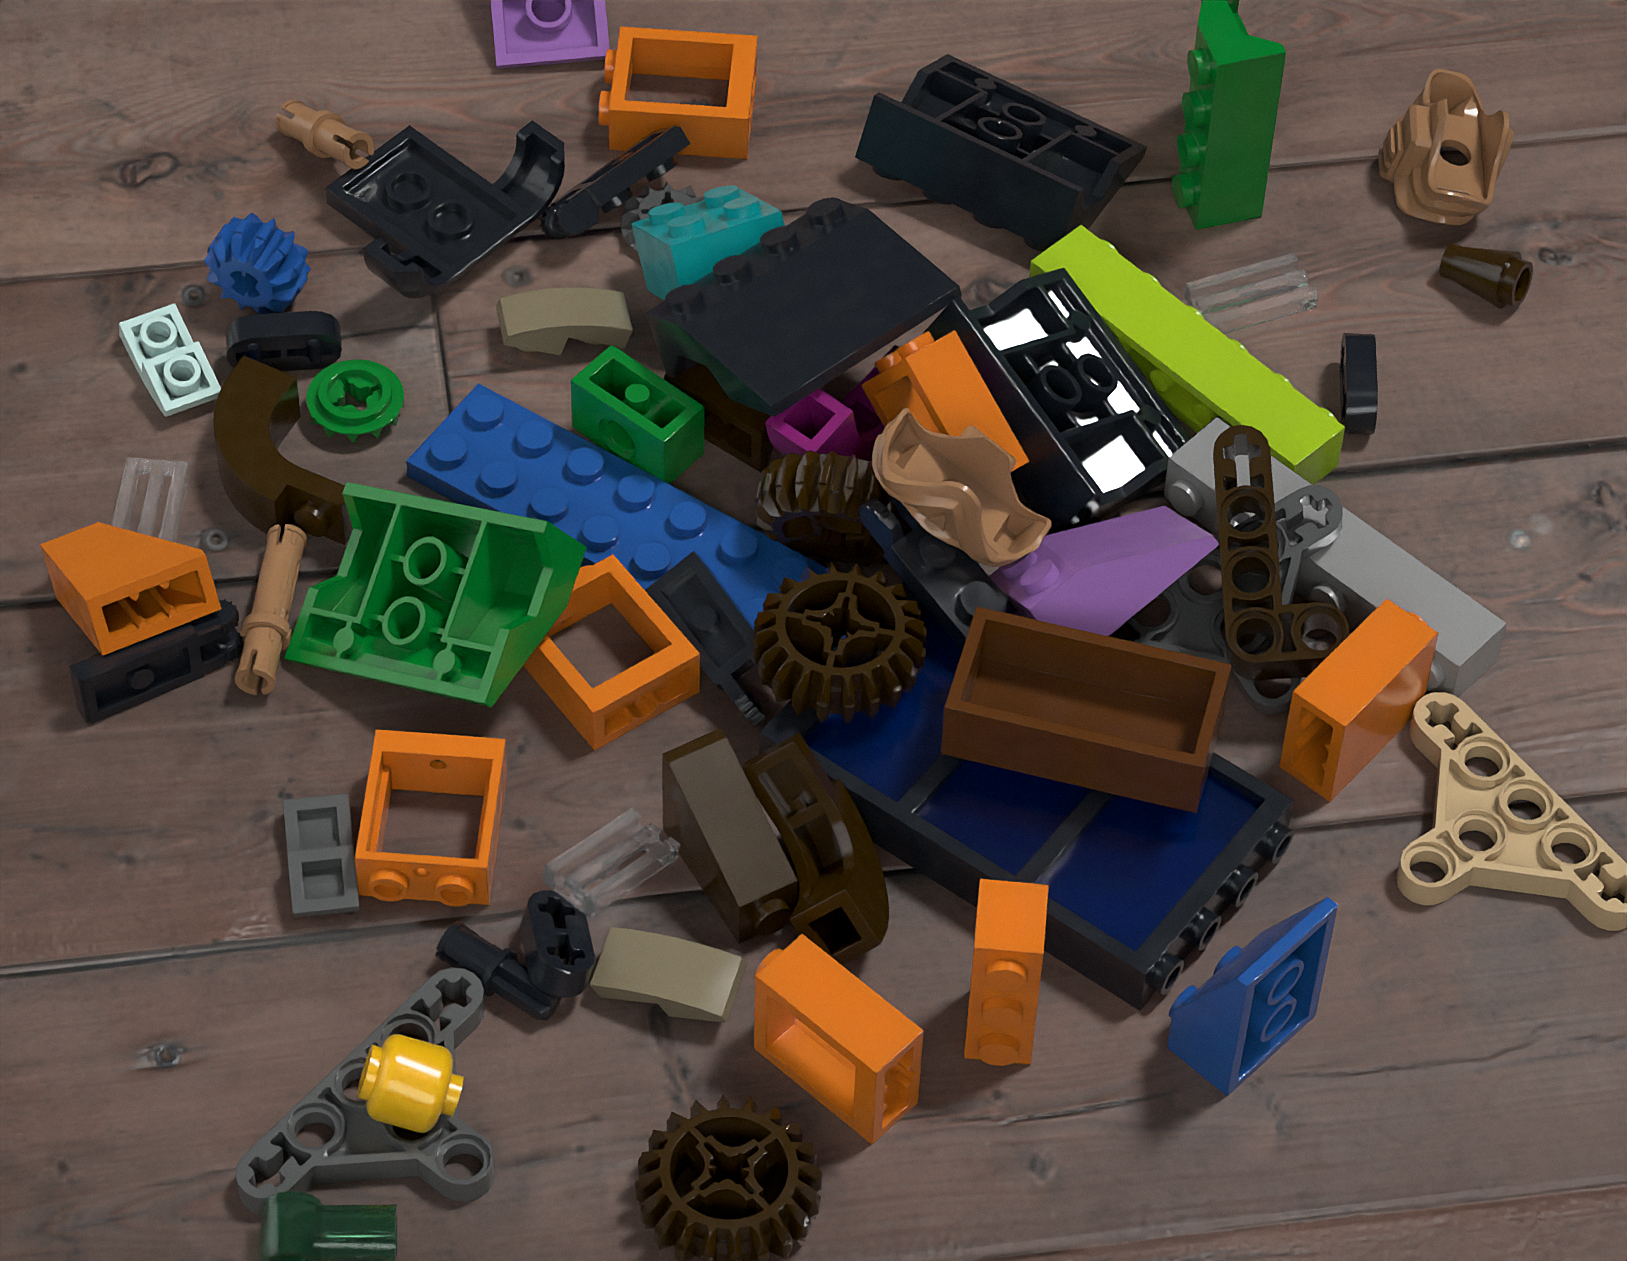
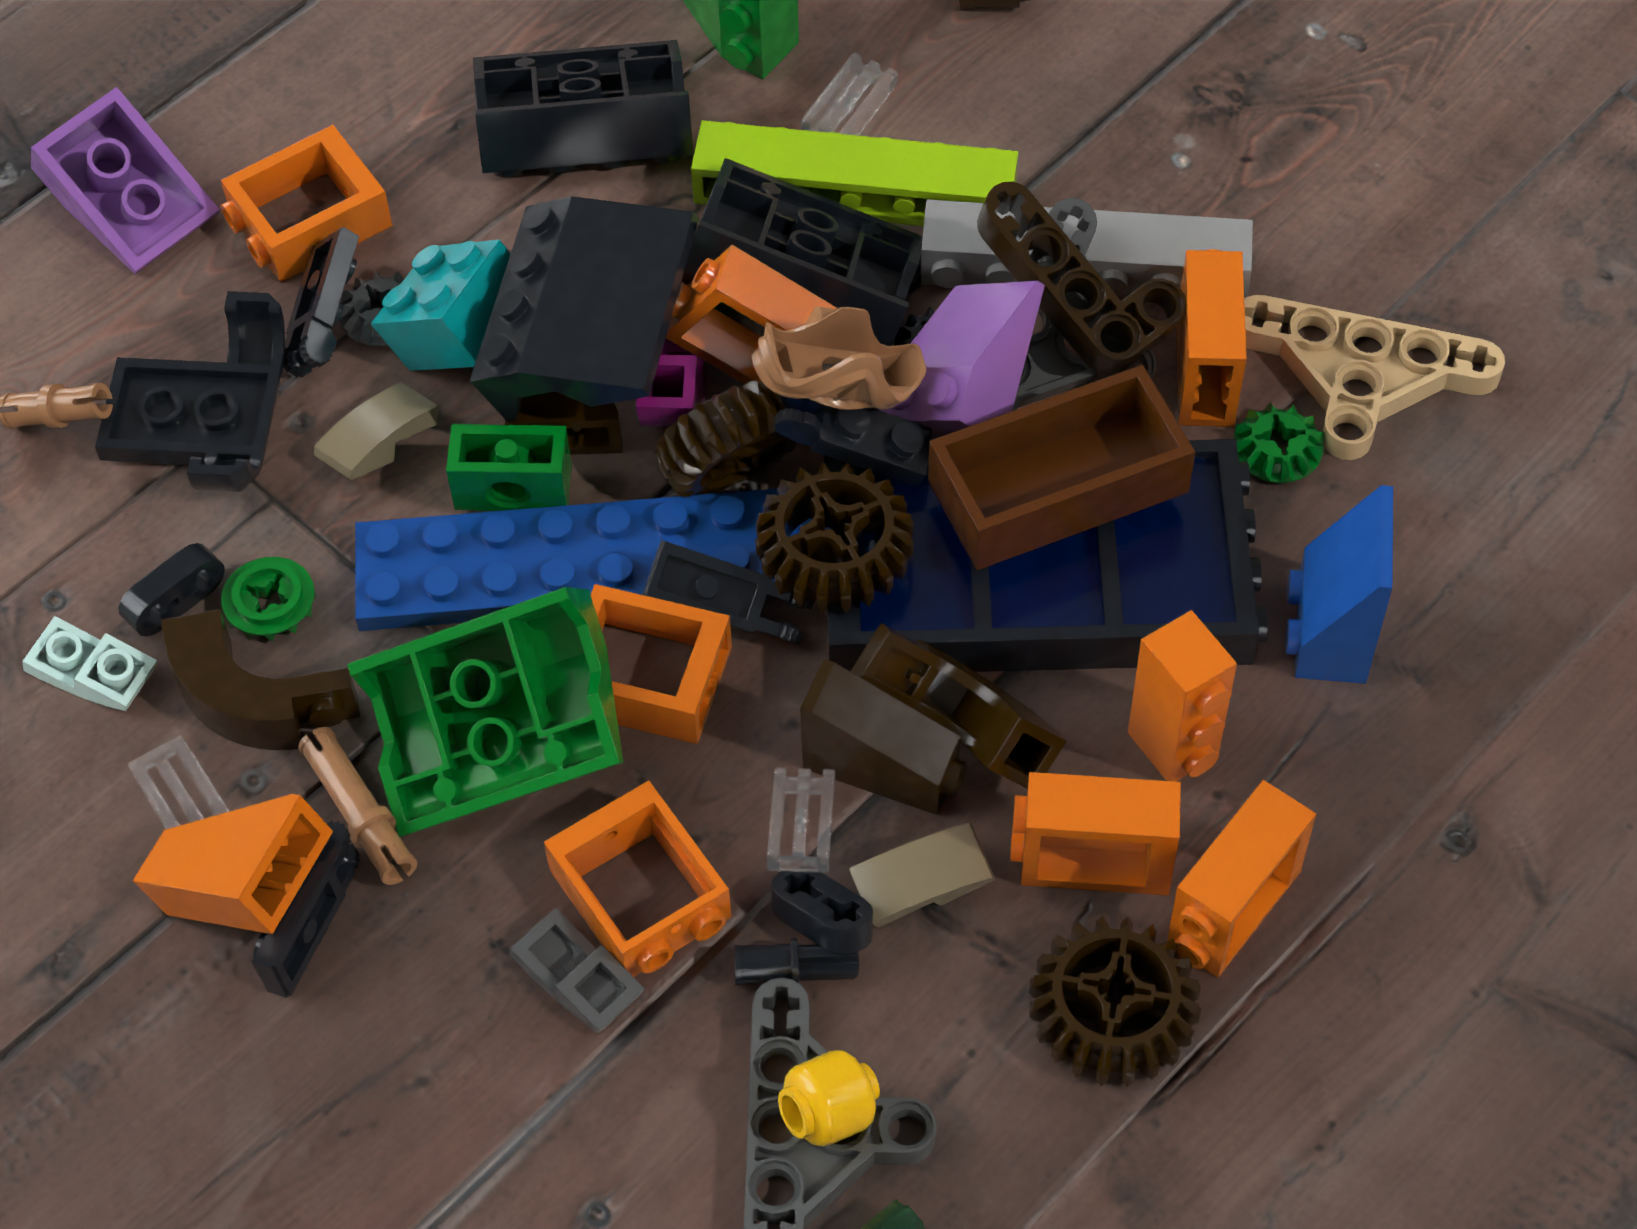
camera: 35 degrees left, 5 degrees up
(257, 264) = (100, 541): blue gear -> none
(919, 1158) = (1240, 878): none -> orange window
(1358, 383) = (984, 115): black beam -> none
(1364, 859) = (1264, 456): none -> green gear

